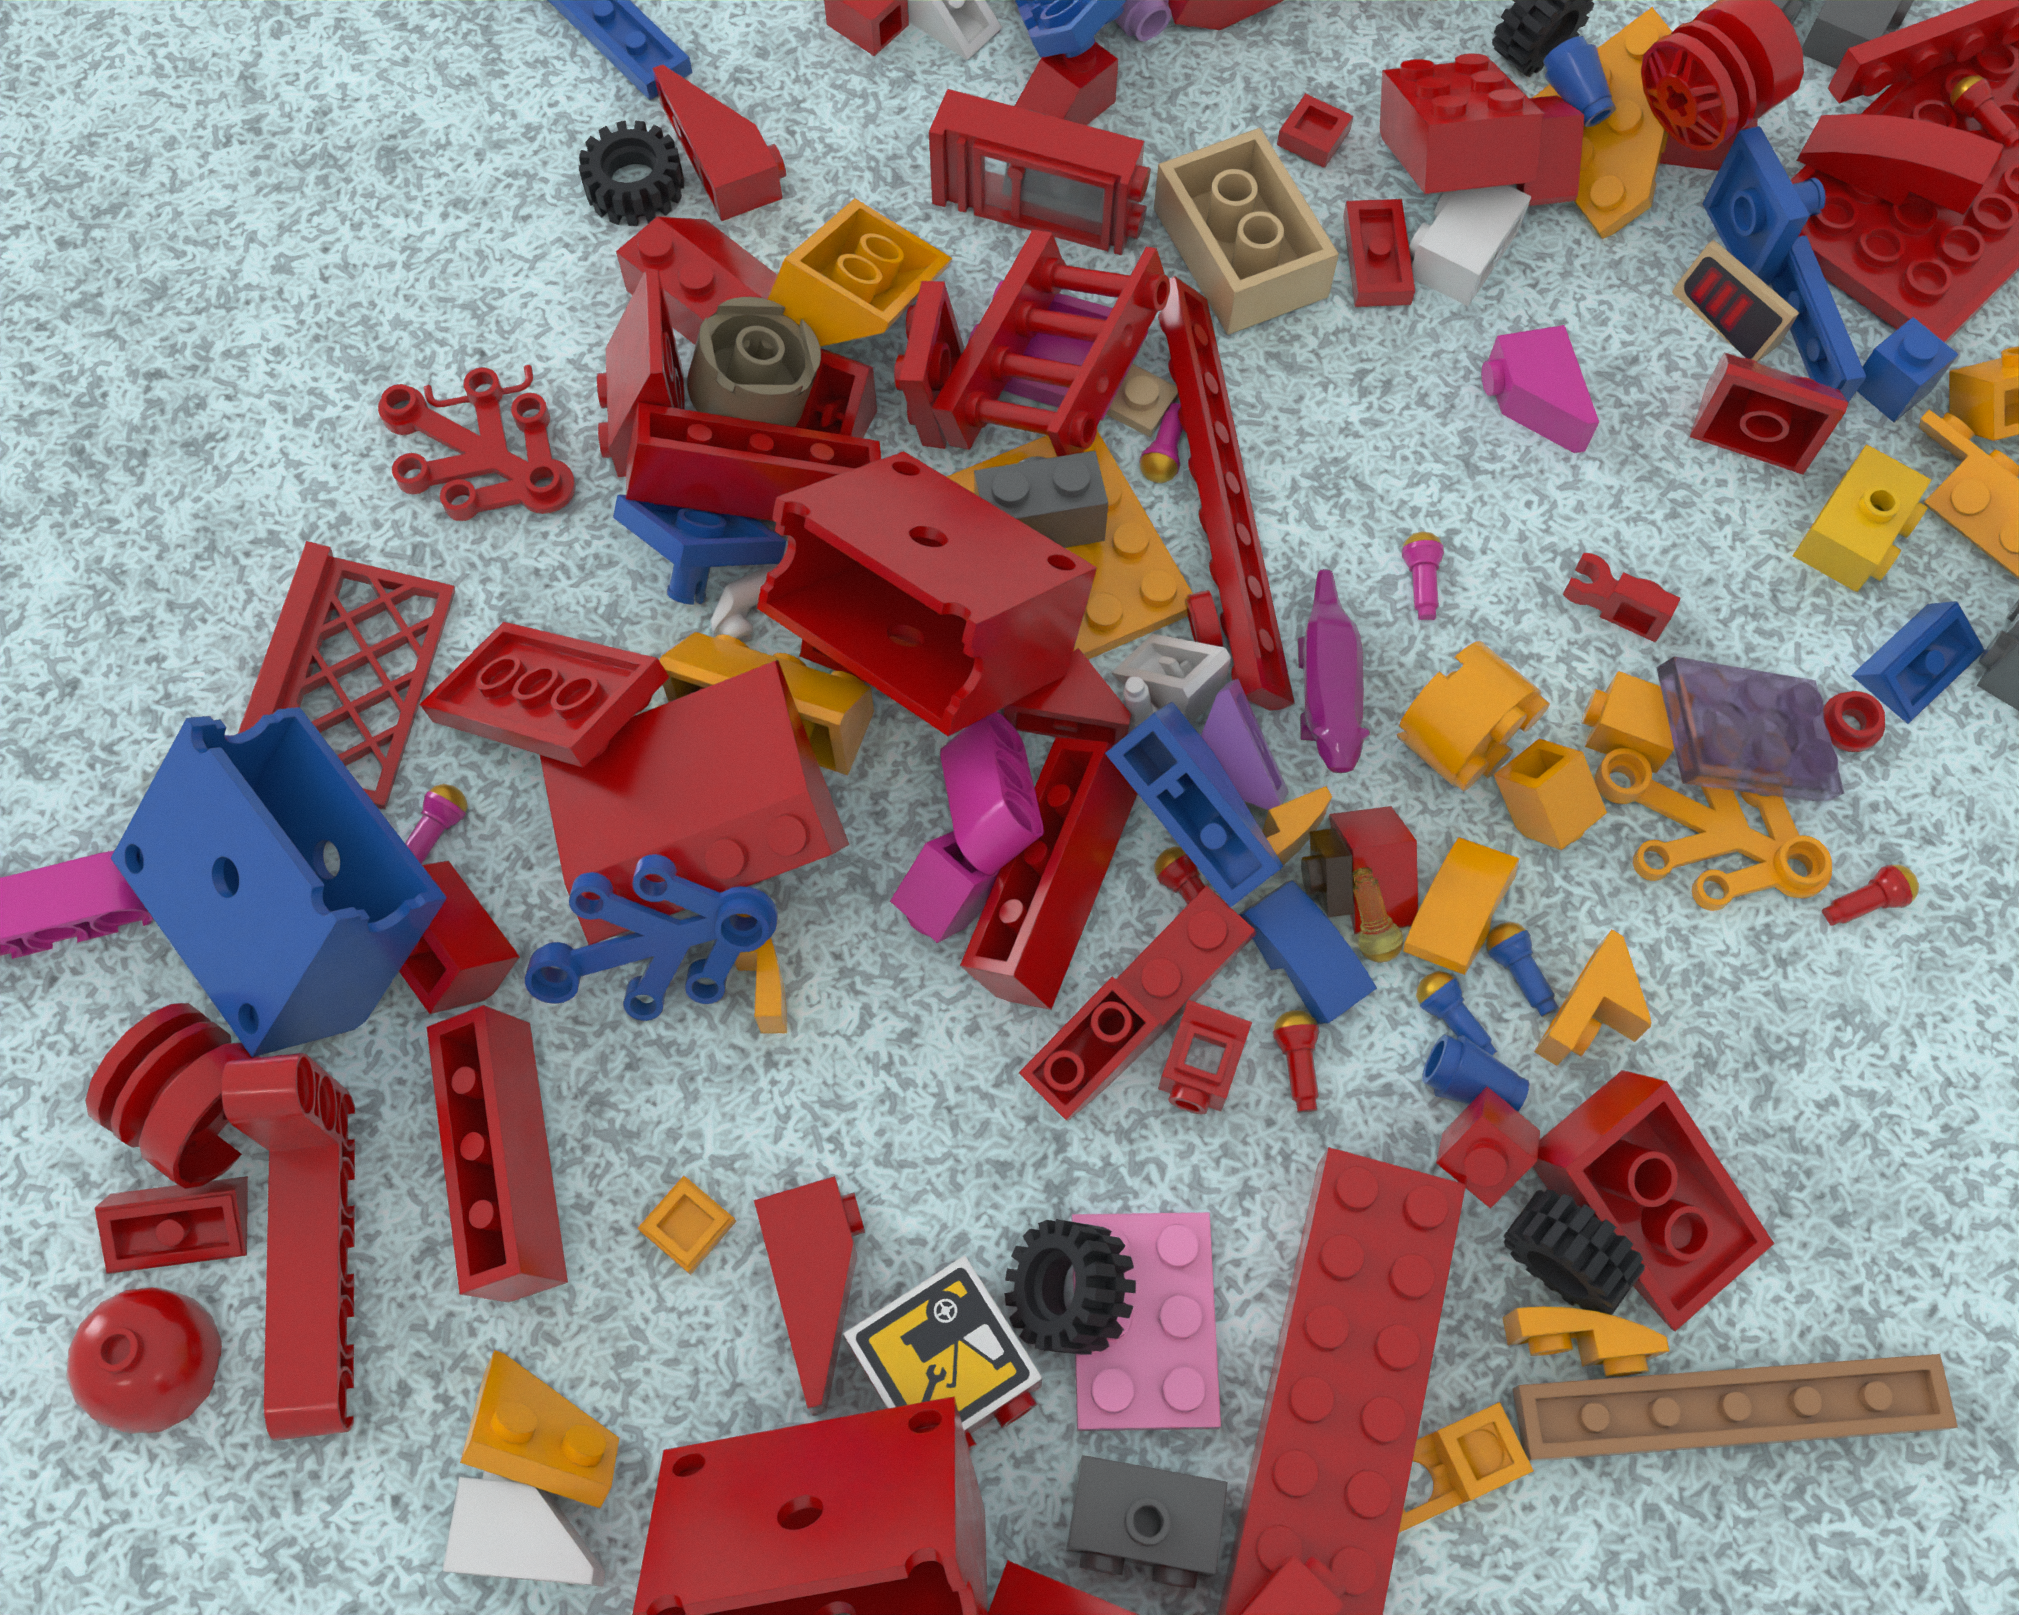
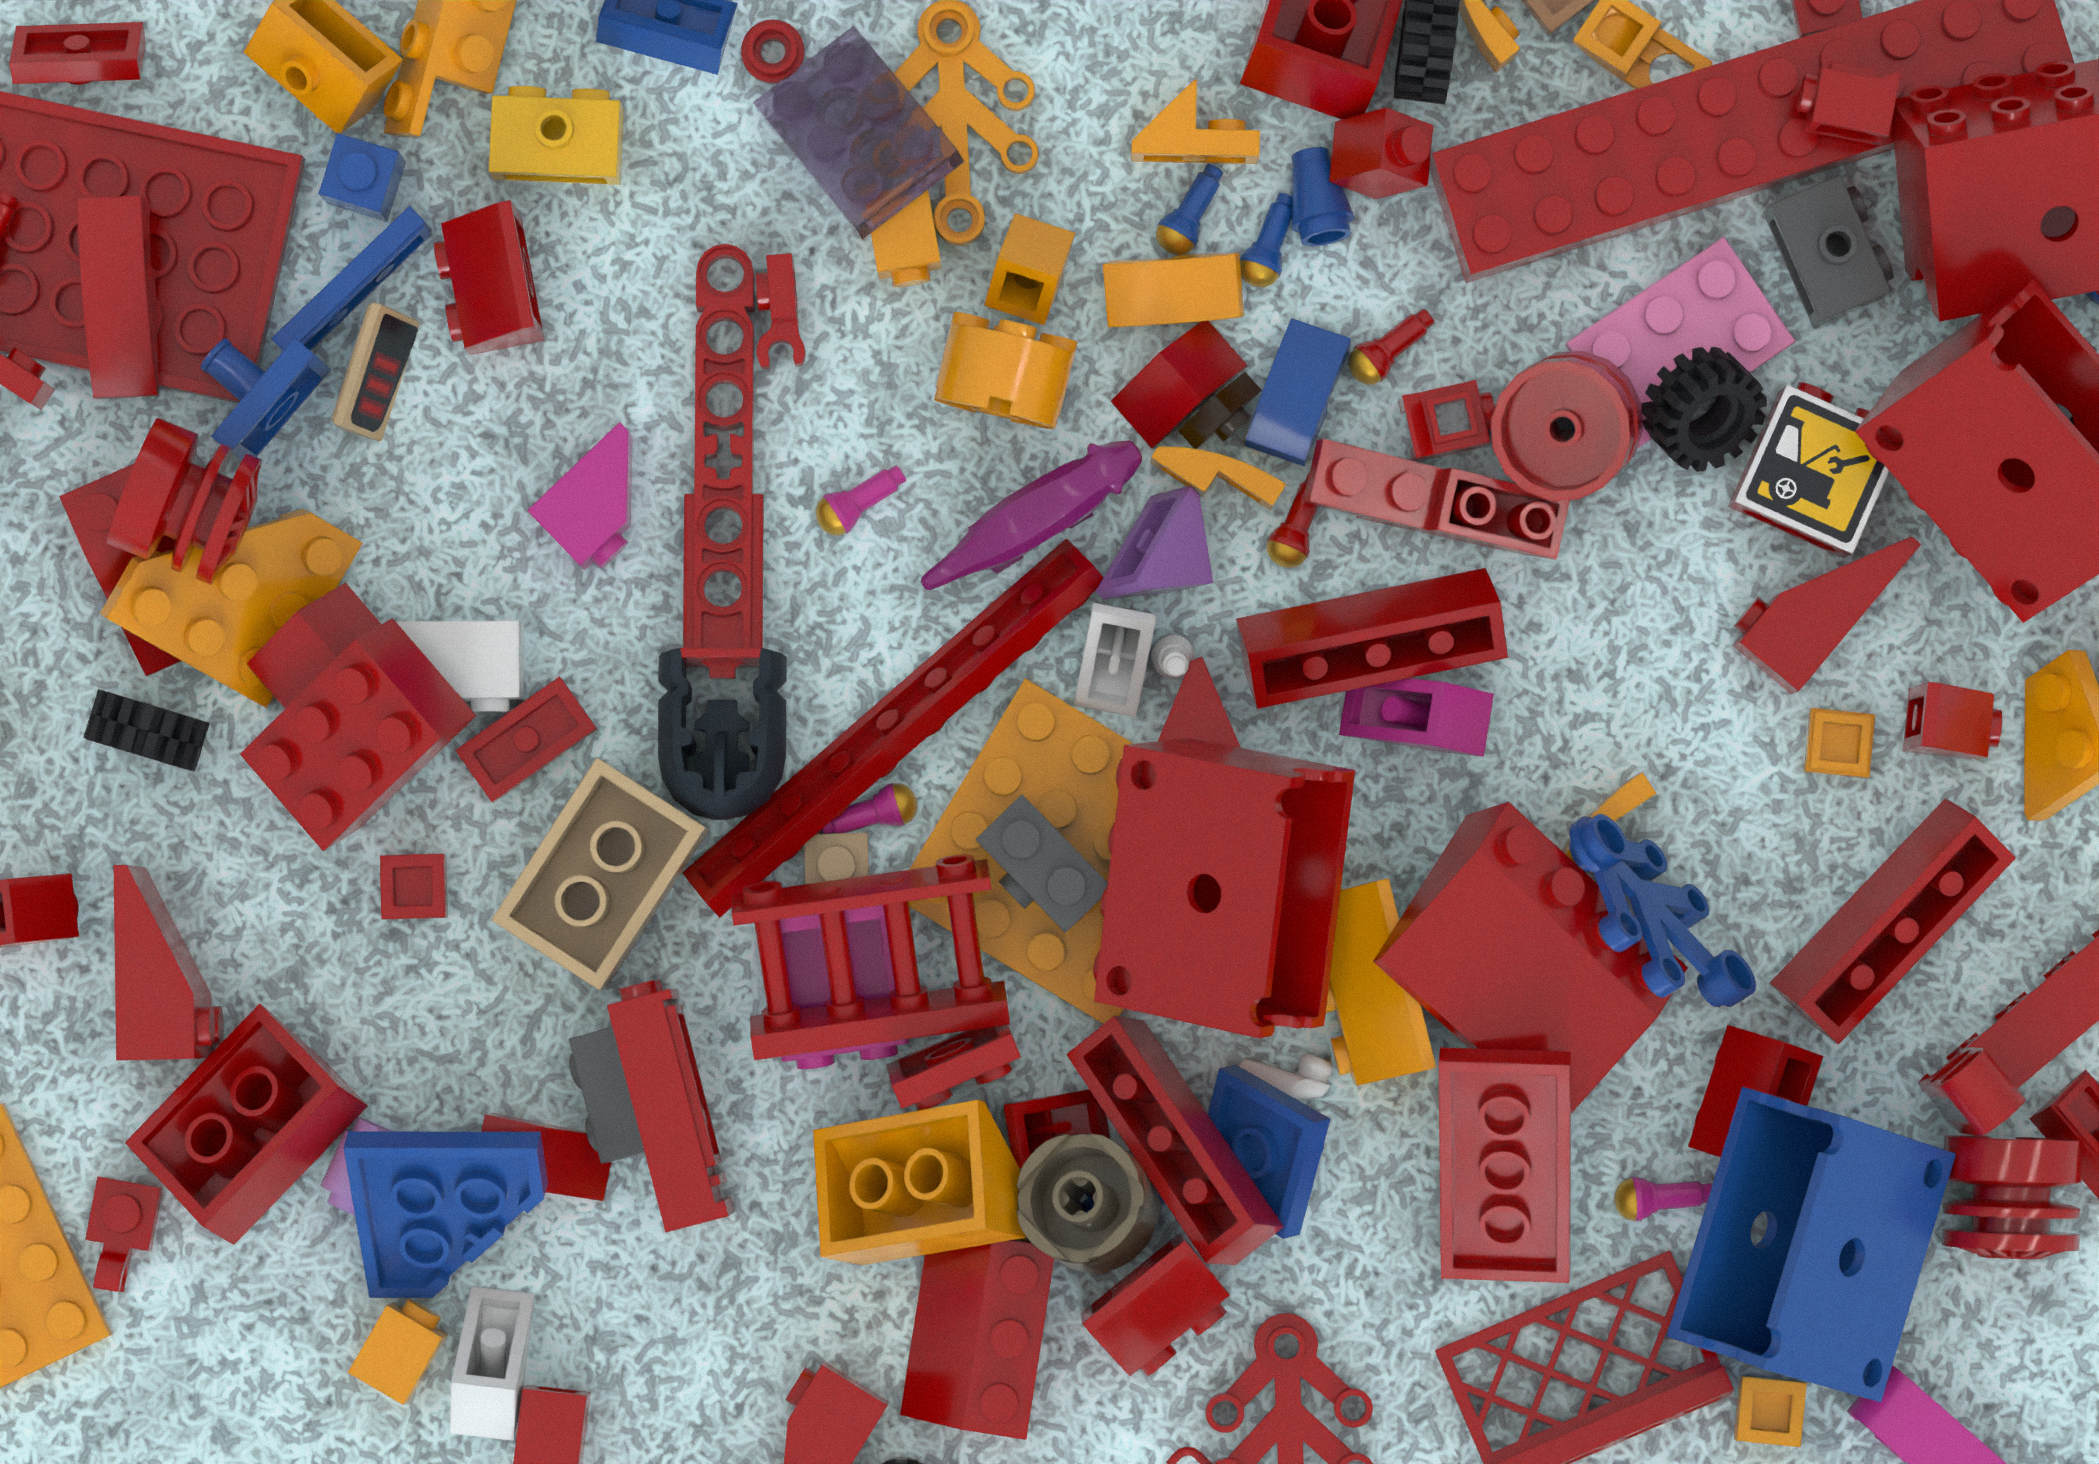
camera: 125 degrees left, 20 degrees up
(625, 1328) = (1951, 721): none -> red slope
(990, 793) = (1354, 716): dark pink beam -> none
(1133, 1148) = (1552, 460): none -> red wheel
(1196, 802) = (1247, 556): blue slope -> none
(1203, 618) = (1043, 661): red tile -> none
(1288, 346) = (730, 634): none -> red piece
(1379, 936) = (1243, 341): clear yellow piece -> none
(1580, 80) = (234, 643): blue cone -> none

